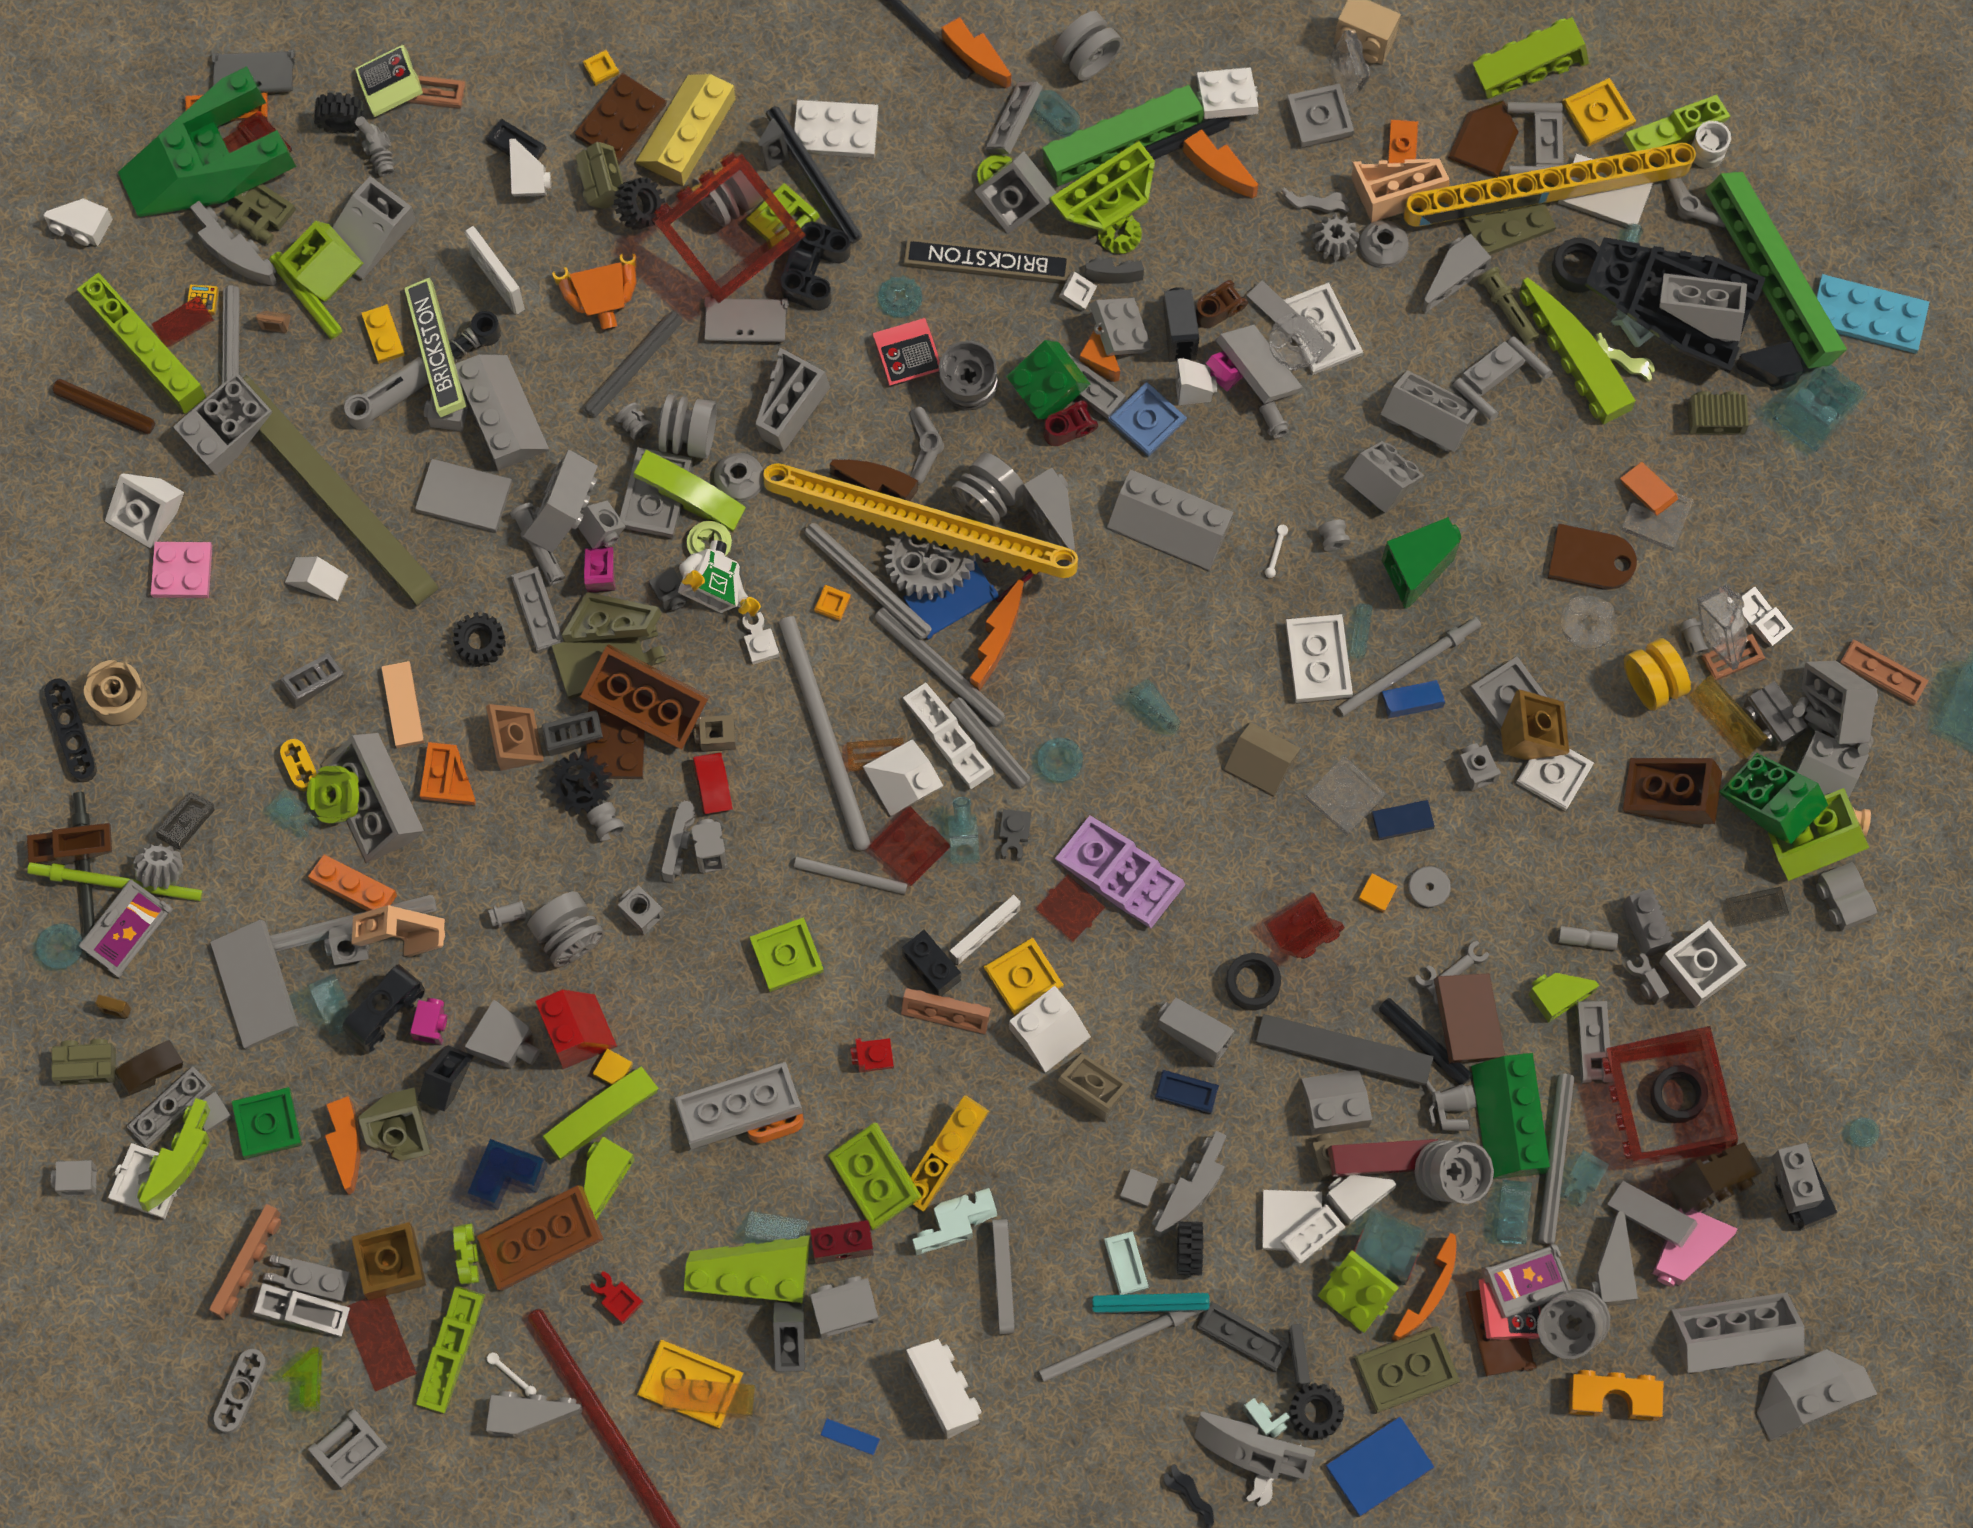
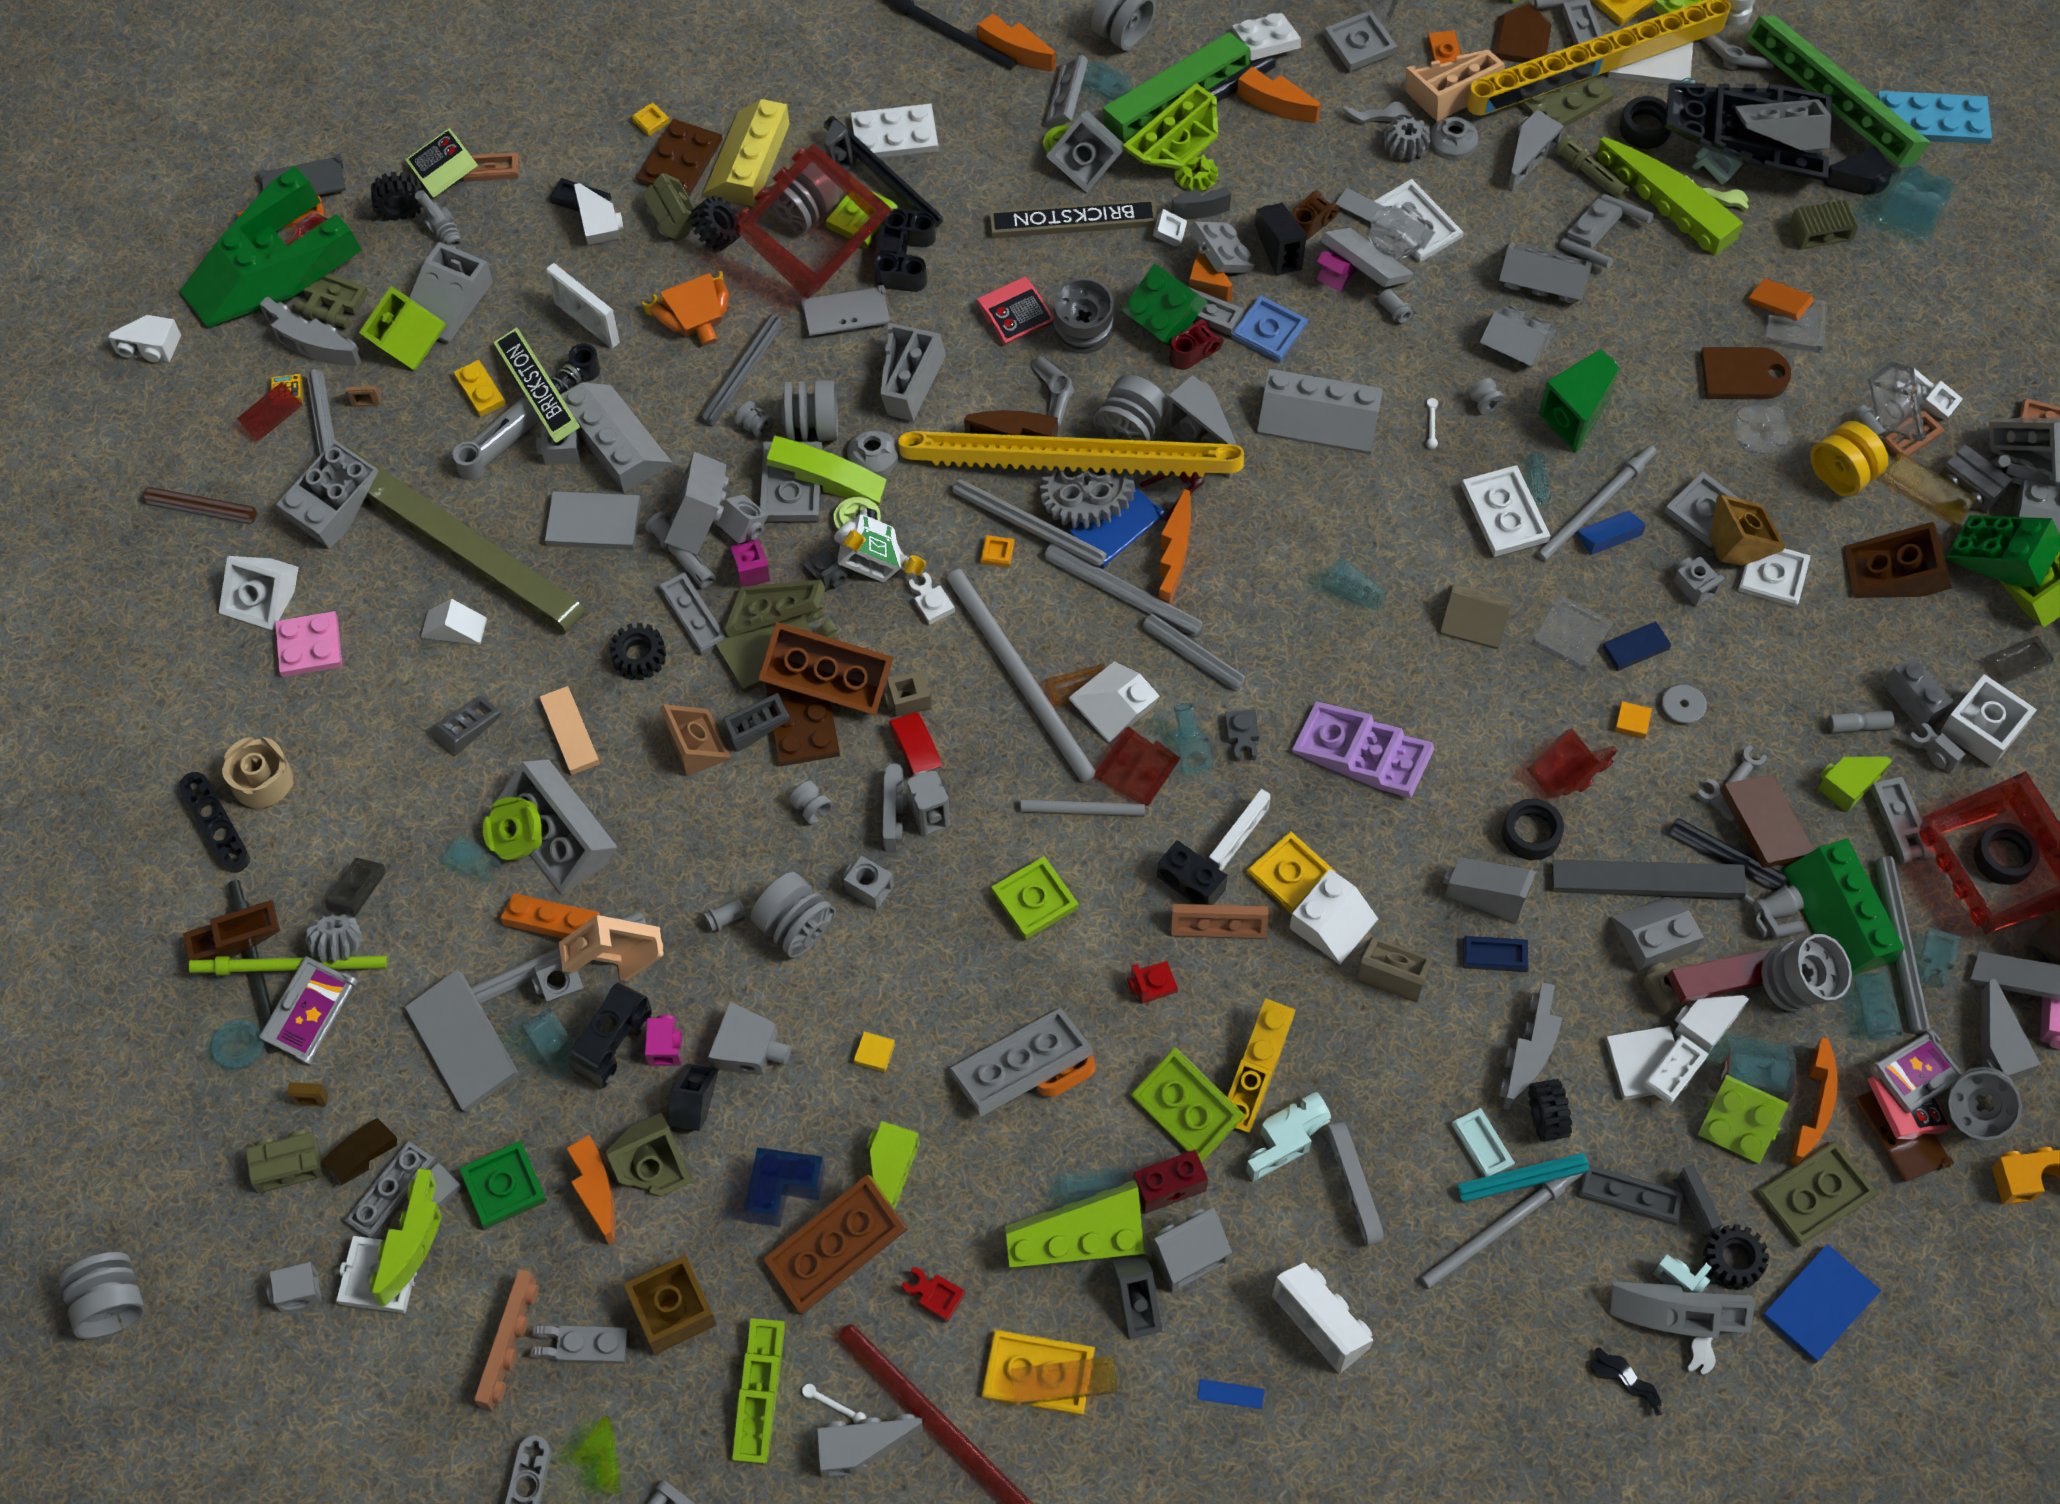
camera: 10 degrees left, 10 degrees down
(142, 343) = (231, 437): lime slope -> none
(292, 767) = (463, 813): yellow beam -> none
(299, 1310) = (578, 1381): light grey slope -> none
(308, 299) = (394, 368): lime axle -> none
(380, 1342) = (676, 1399): clear red piece -> none
(445, 776) = (630, 791): orange wing -> none
(466, 1254) = (756, 1278): lime plate -> none
(570, 779) = (780, 754): black gear -> none
(575, 1026) = (822, 1013): red slope -> none
(600, 1113) = (871, 1099): lime slope -> none
(900, 307) = (1001, 271): clear light blue gear -> none
(948, 735) = (1149, 653): white slope -> none
(1054, 748) = (1281, 646): clear light blue gear -> none
(1070, 908) = (1321, 796): clear red piece -> none
(1139, 1188) = (1473, 1062): light grey tile -> none
(1194, 382) = (1307, 284): white slope -> none

